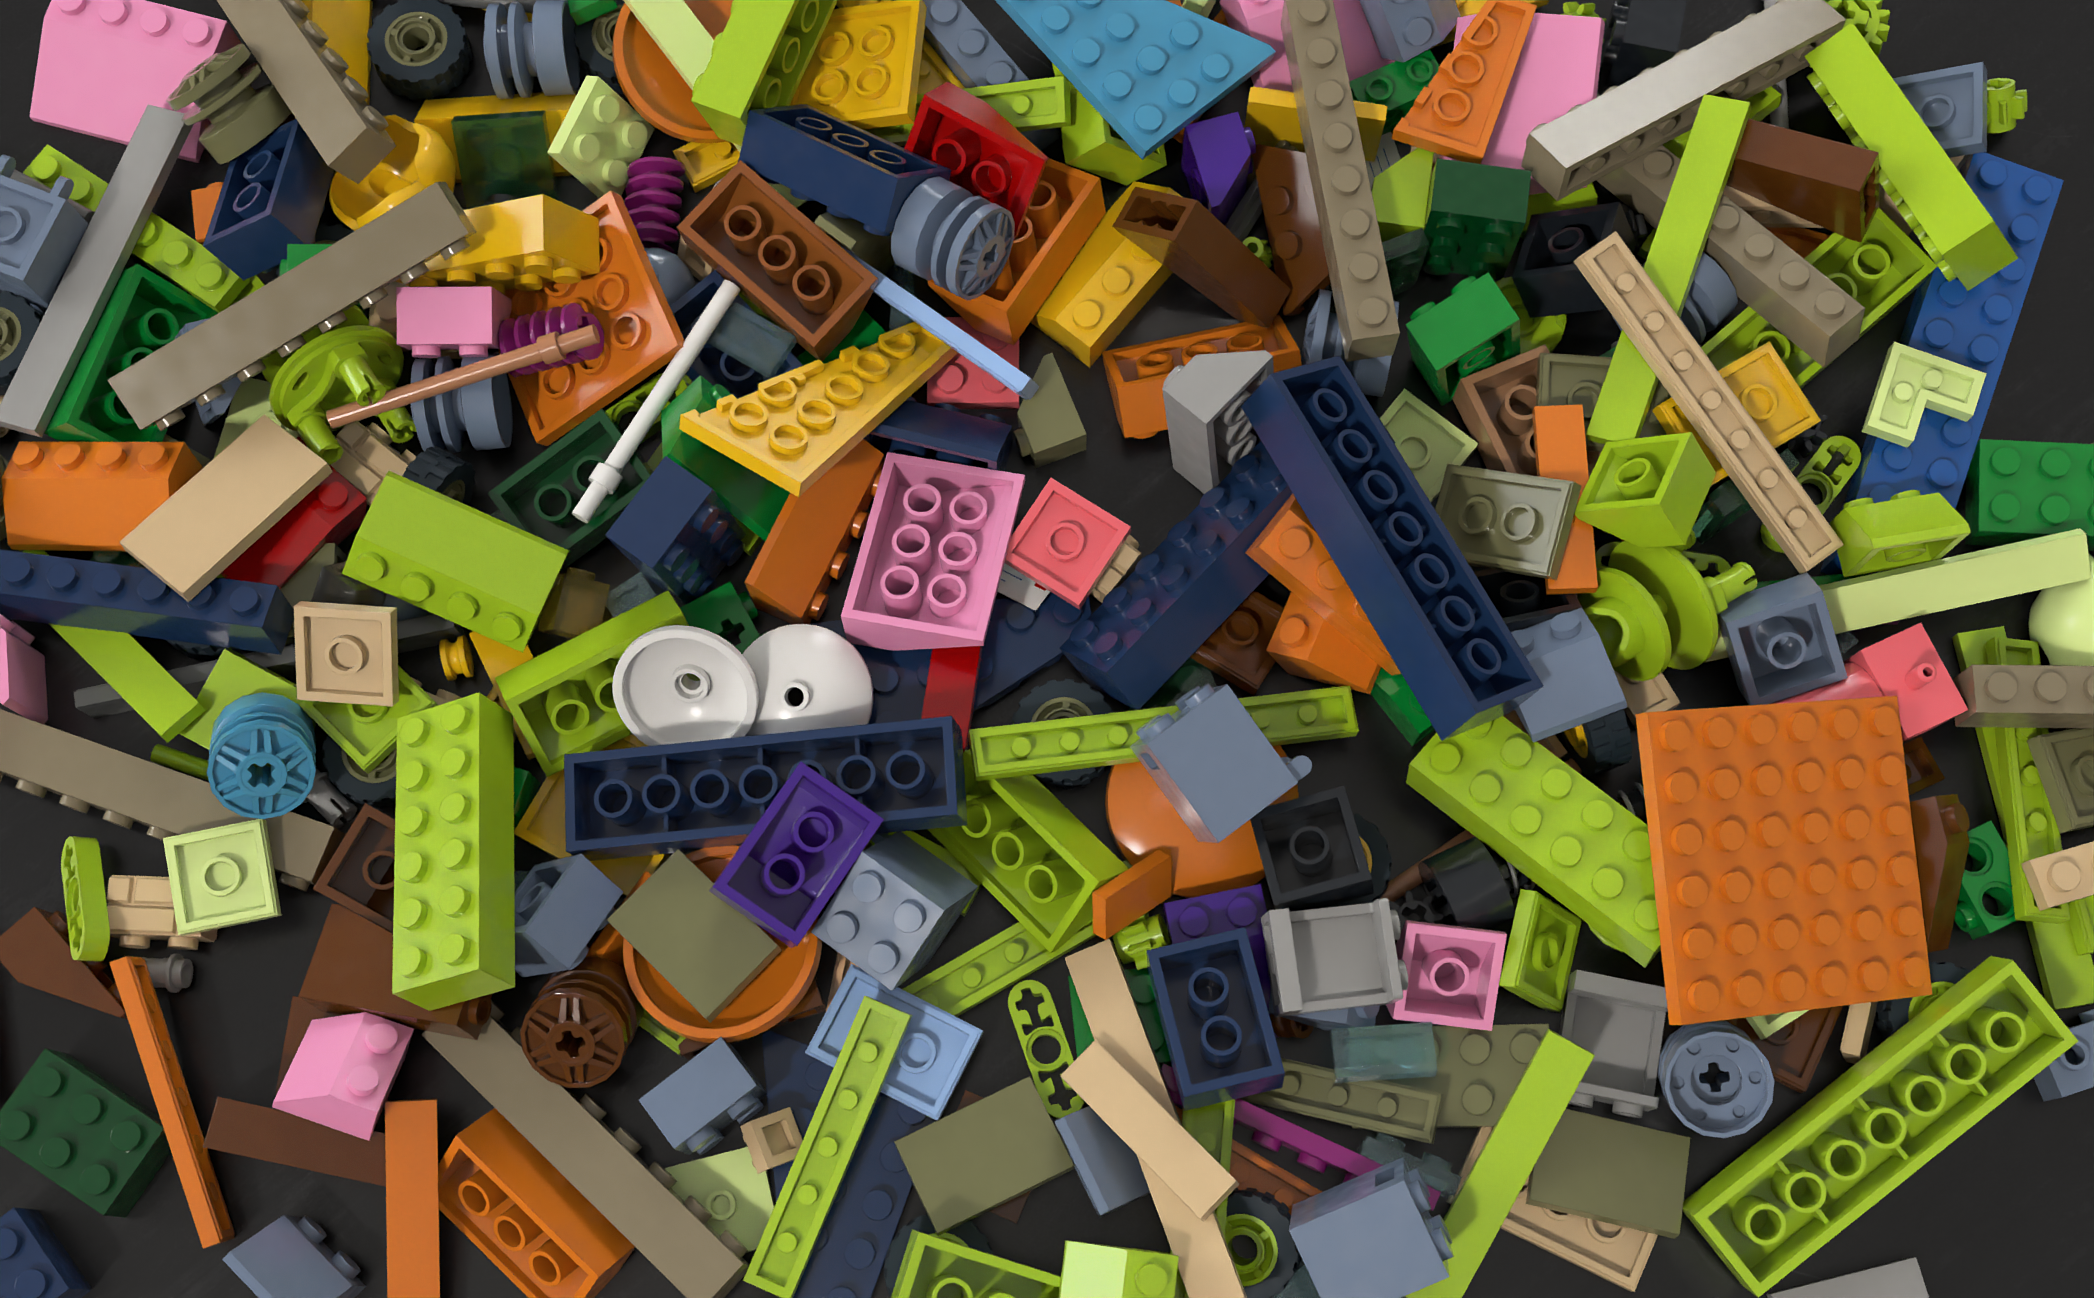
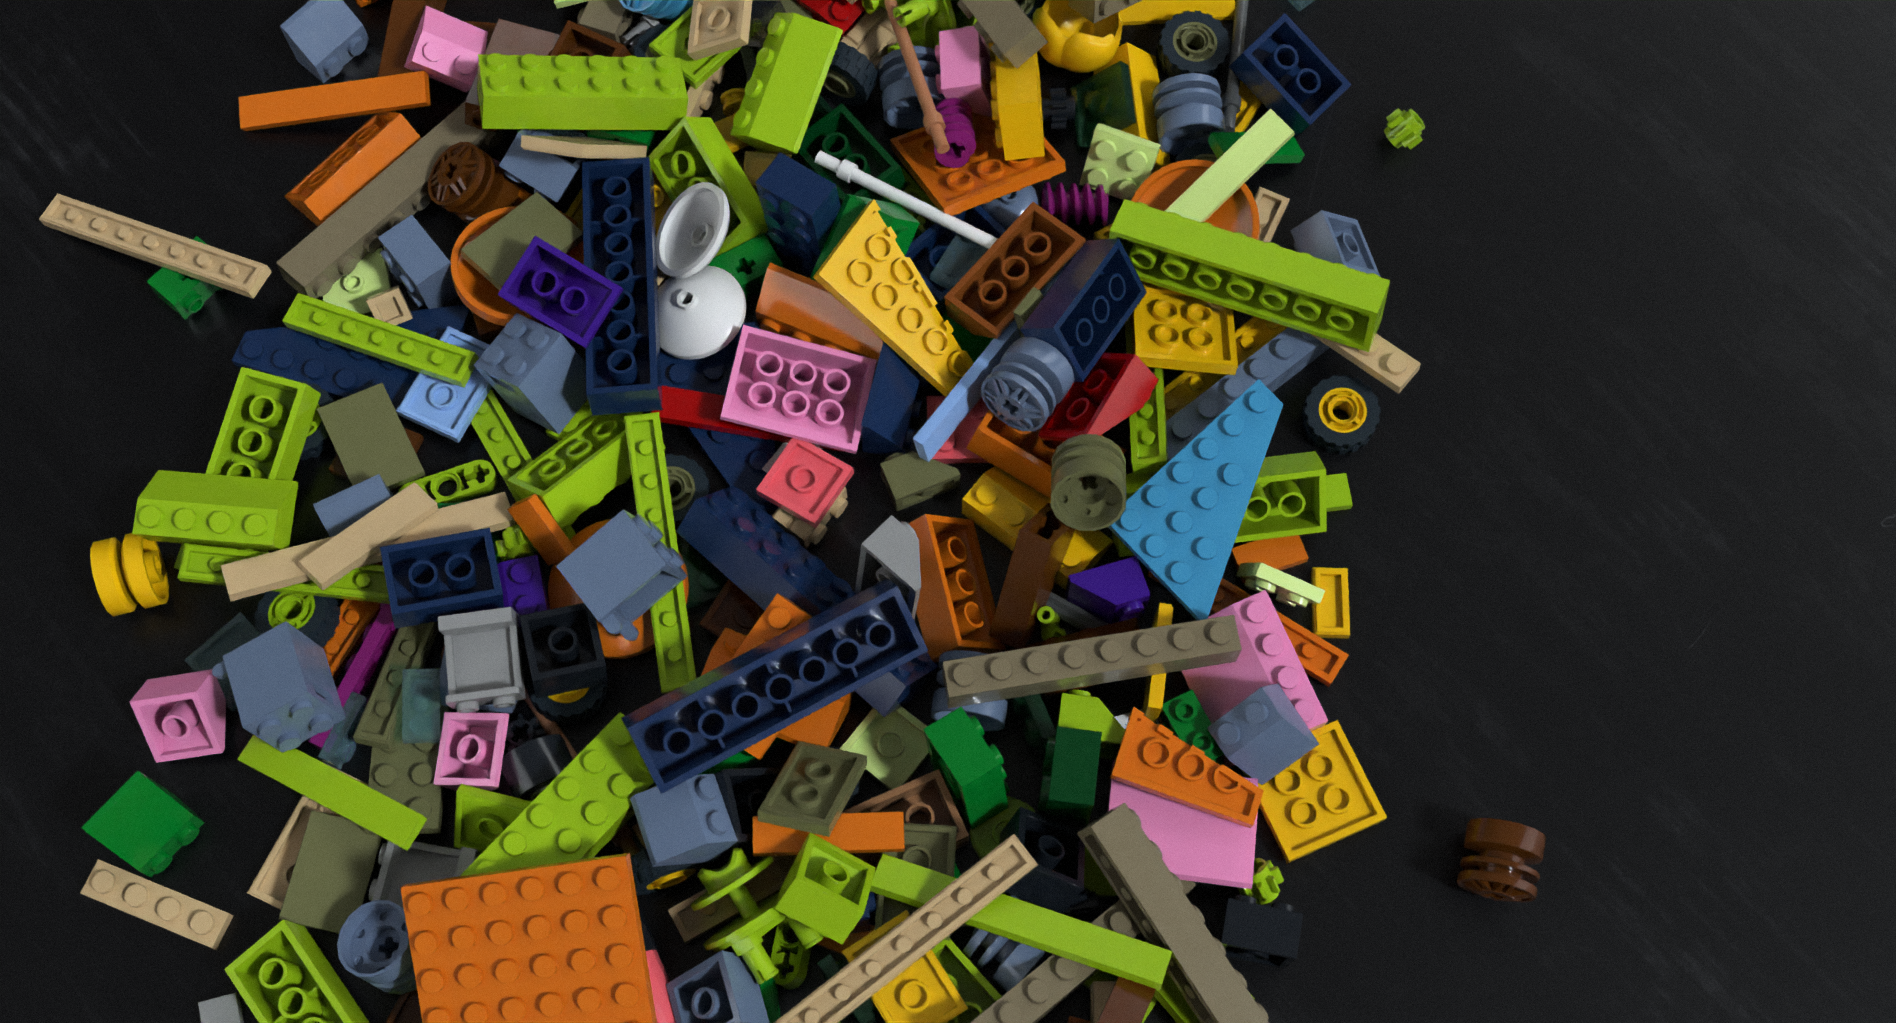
camera: 85 degrees right, 5 degrees down
(552, 840) = (583, 147): none -> tan tile
(1102, 160) = (1088, 482): none -> olive wheel

